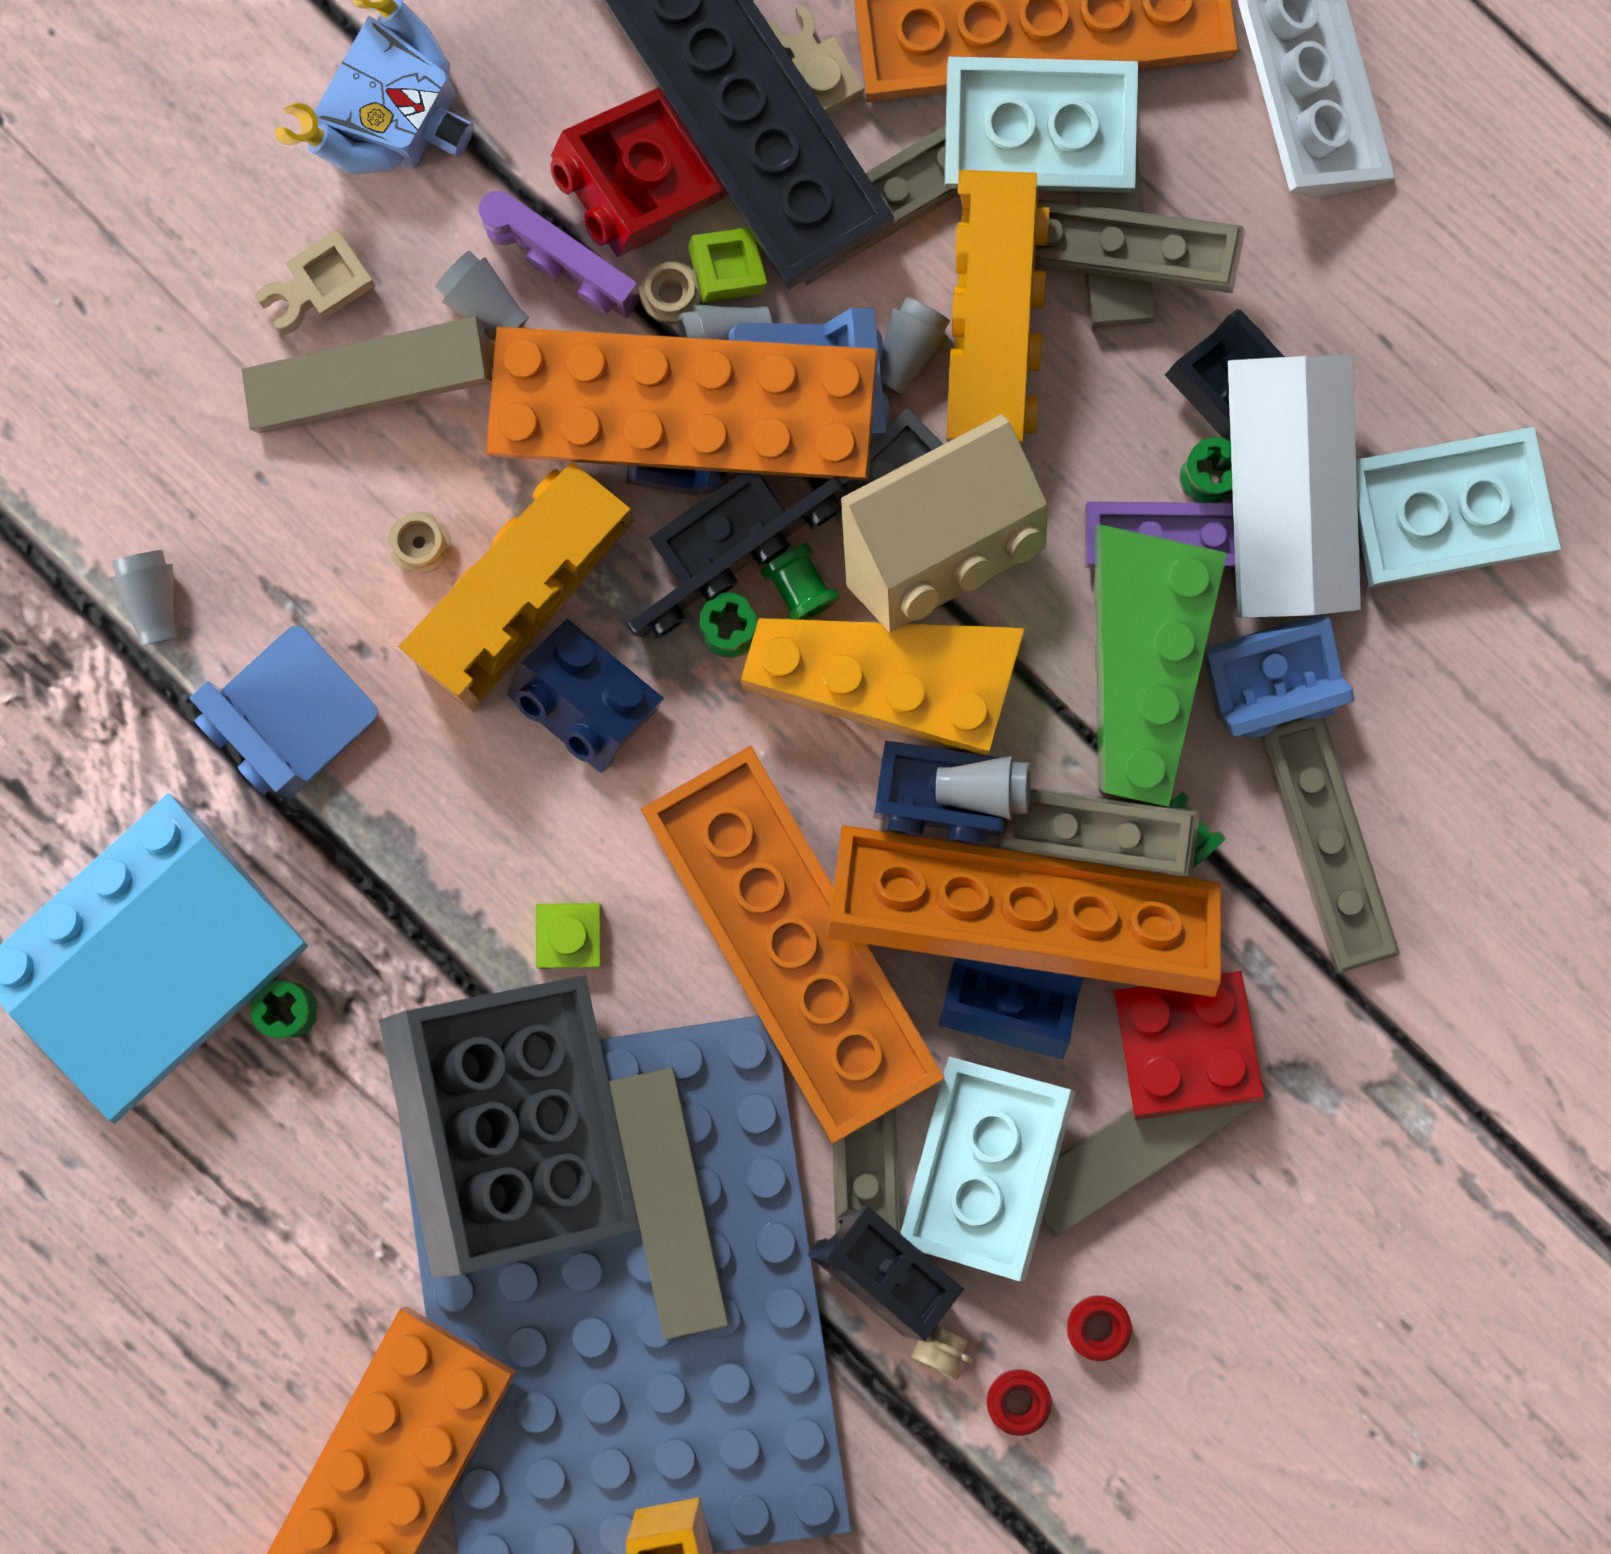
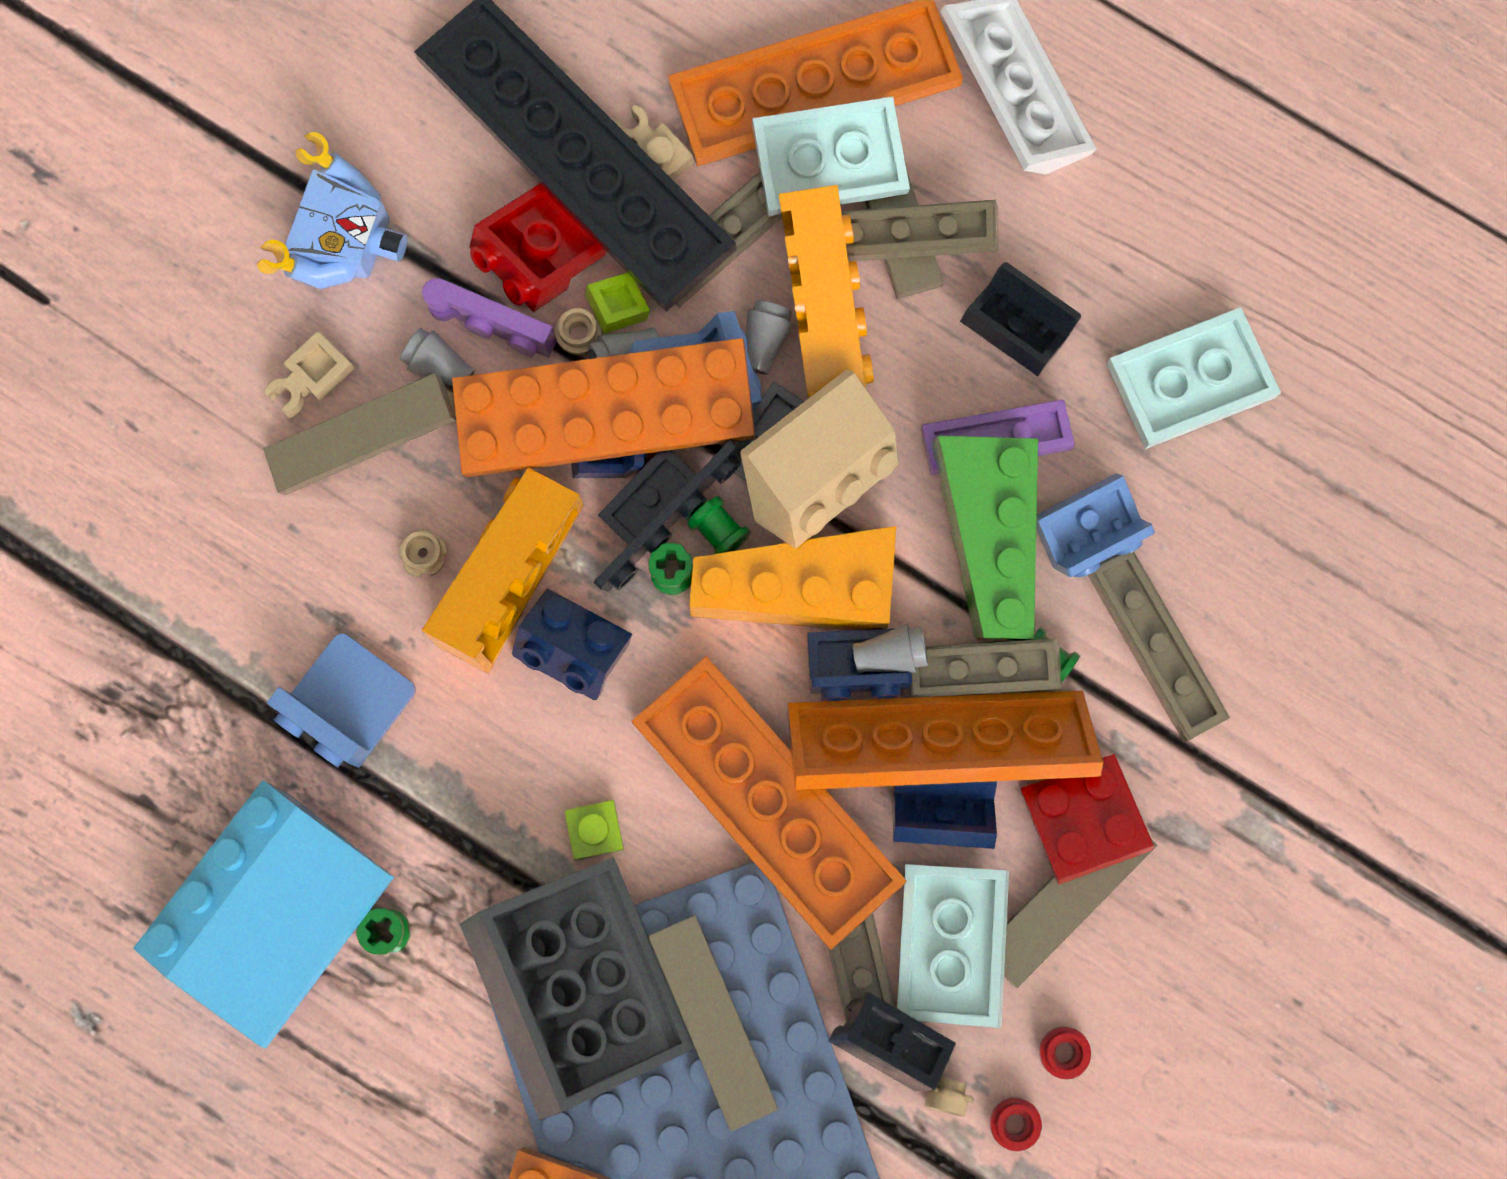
camera: 15 degrees left, 5 degrees down
(147, 595) = (220, 632): light grey cone -> none
(1199, 485) = (1018, 374): green bush -> none
(1294, 485) = (1074, 382): white slope -> none

